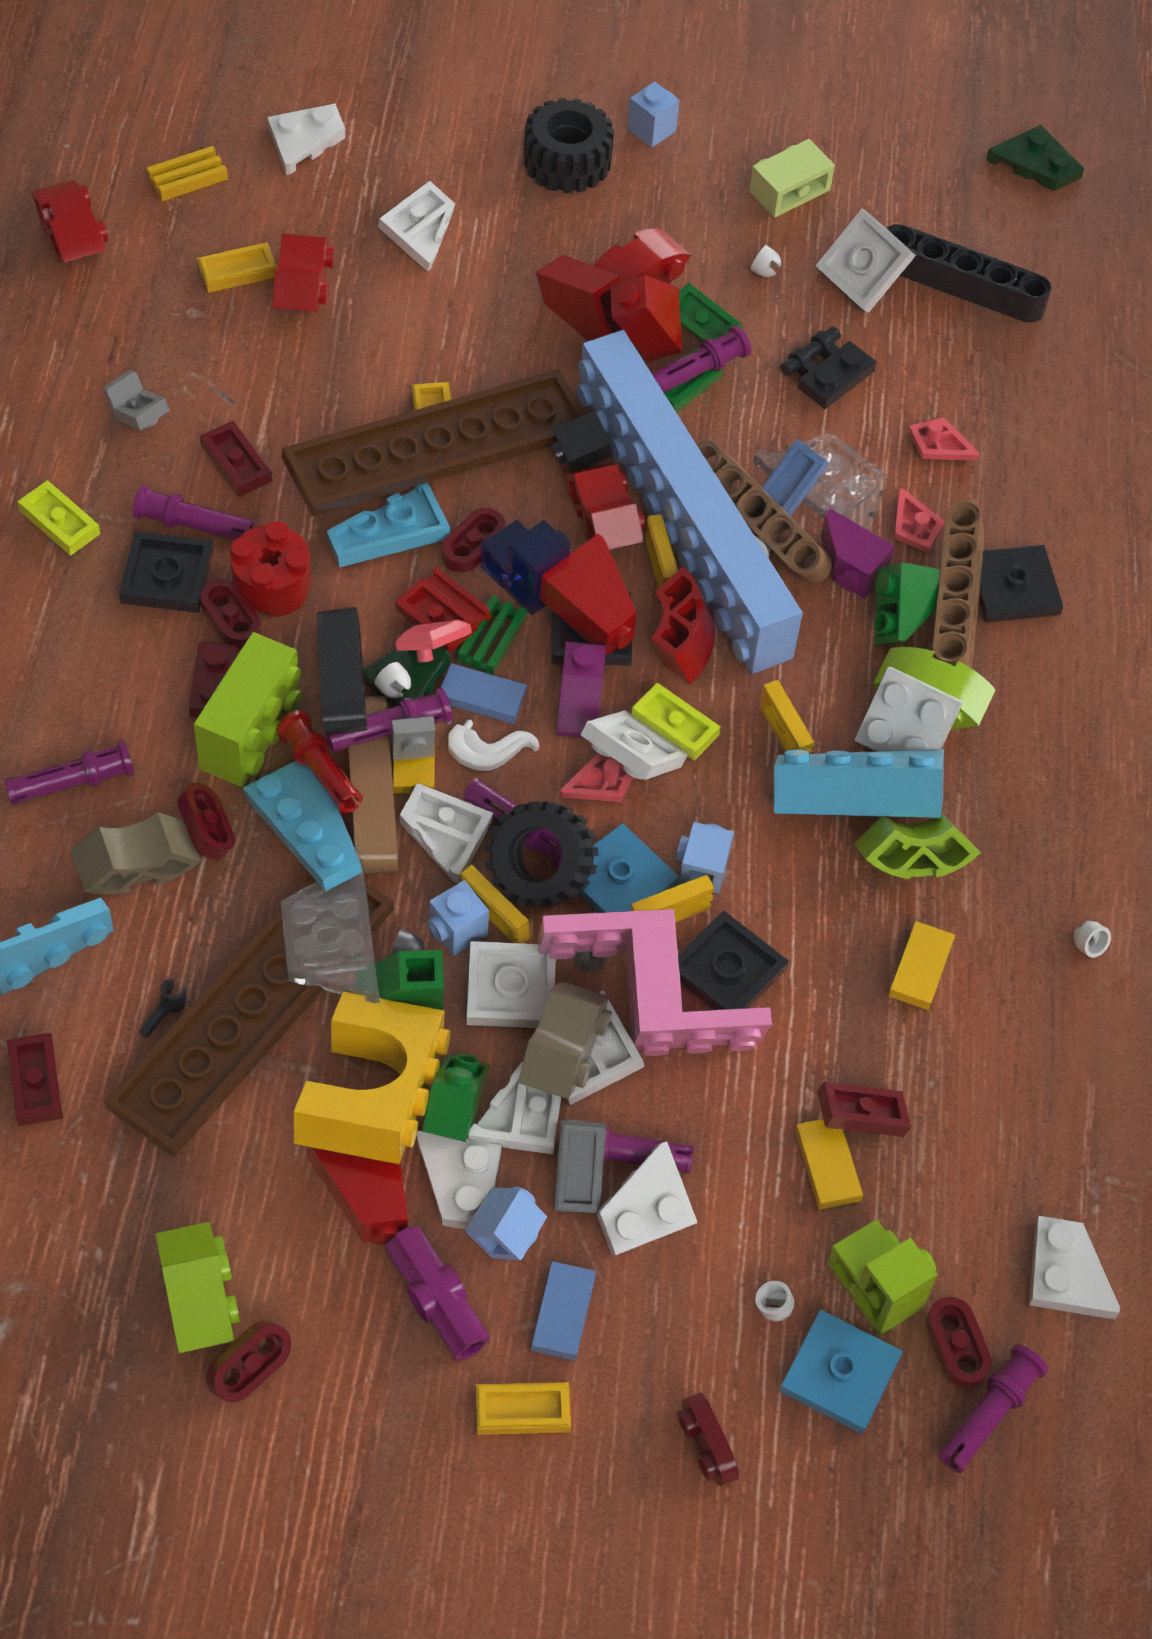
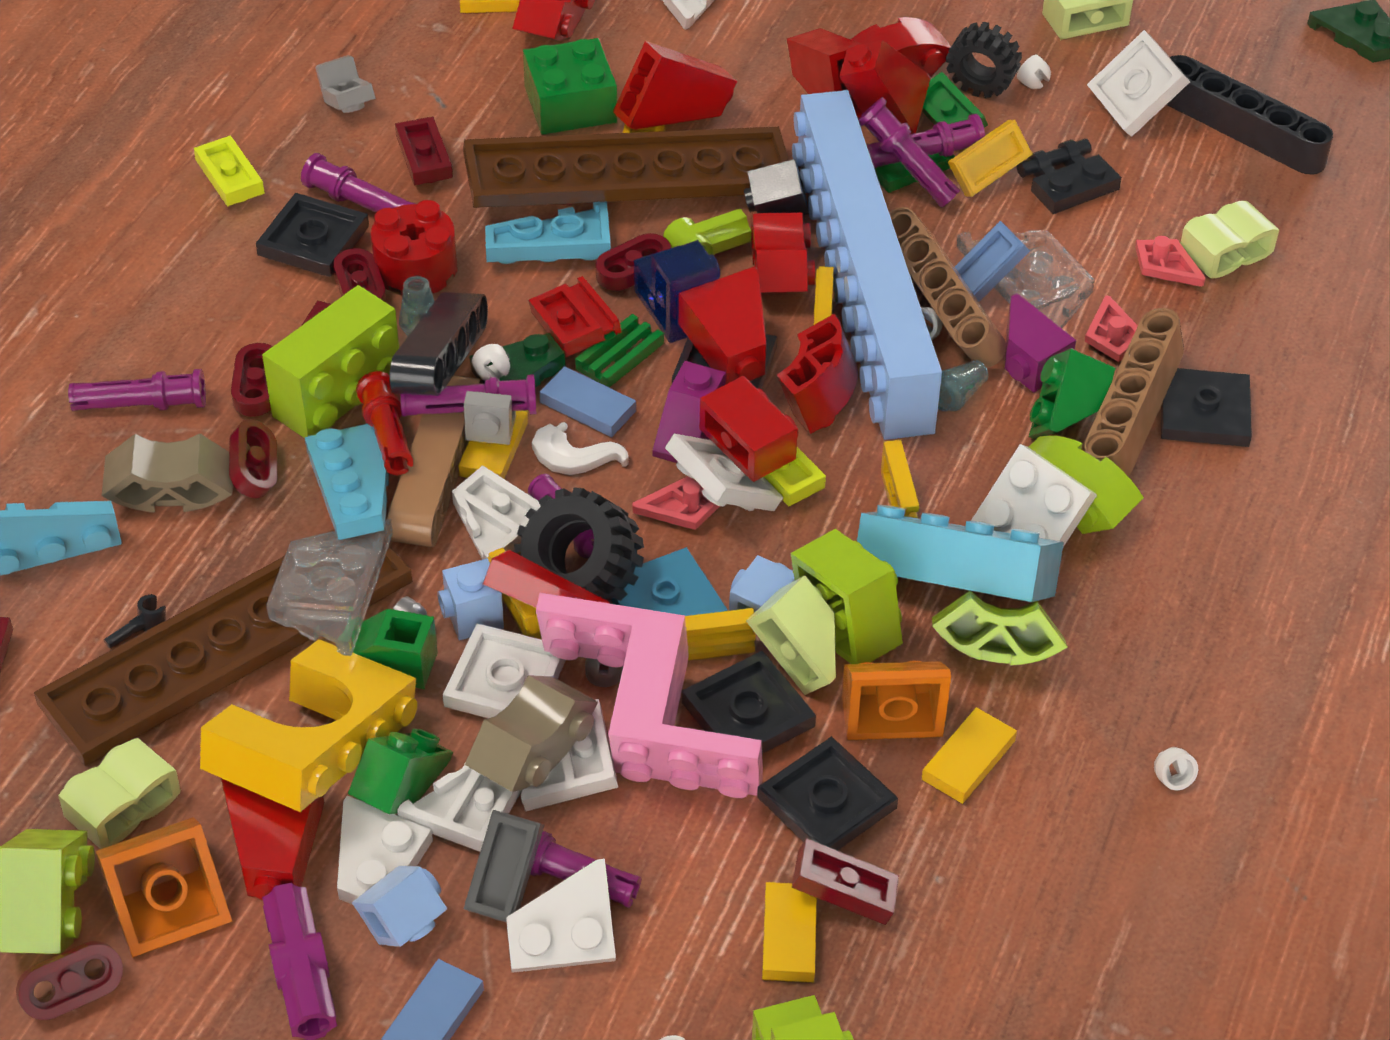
camera: 20 degrees right, 10 degrees down
(175, 740) = (249, 381): none -> dark red plate
(219, 1177) = (119, 793): none -> yellowish green brick
(293, 1253) = (163, 886): none -> orange slope
(300, 632) = (415, 302): none -> clear light blue cone
(349, 361) = (570, 85): none -> green brick
(431, 636) = (537, 329): coral piece -> none
(449, 350) = (672, 89): none -> red slope
(525, 900) = (526, 580): none -> piece
(533, 498) = (714, 233): none -> lime piece
(646, 699) = (748, 428): none -> red brick
(677, 369) = (896, 139): none -> magenta pin
(722, 247) = (994, 46): none -> black tyre
(754, 889) = (799, 633): none -> yellowish green slope
(758, 366) = (990, 158): none -> yellow tile
(787, 839) = (857, 590): none -> lime brick
(809, 600) = (960, 384): none -> clear light blue cone
(820, 1033) = (827, 796): none -> black plate
(850, 929) = (895, 699): none -> orange slope
(987, 408) = (1229, 239): none -> yellowish green brick

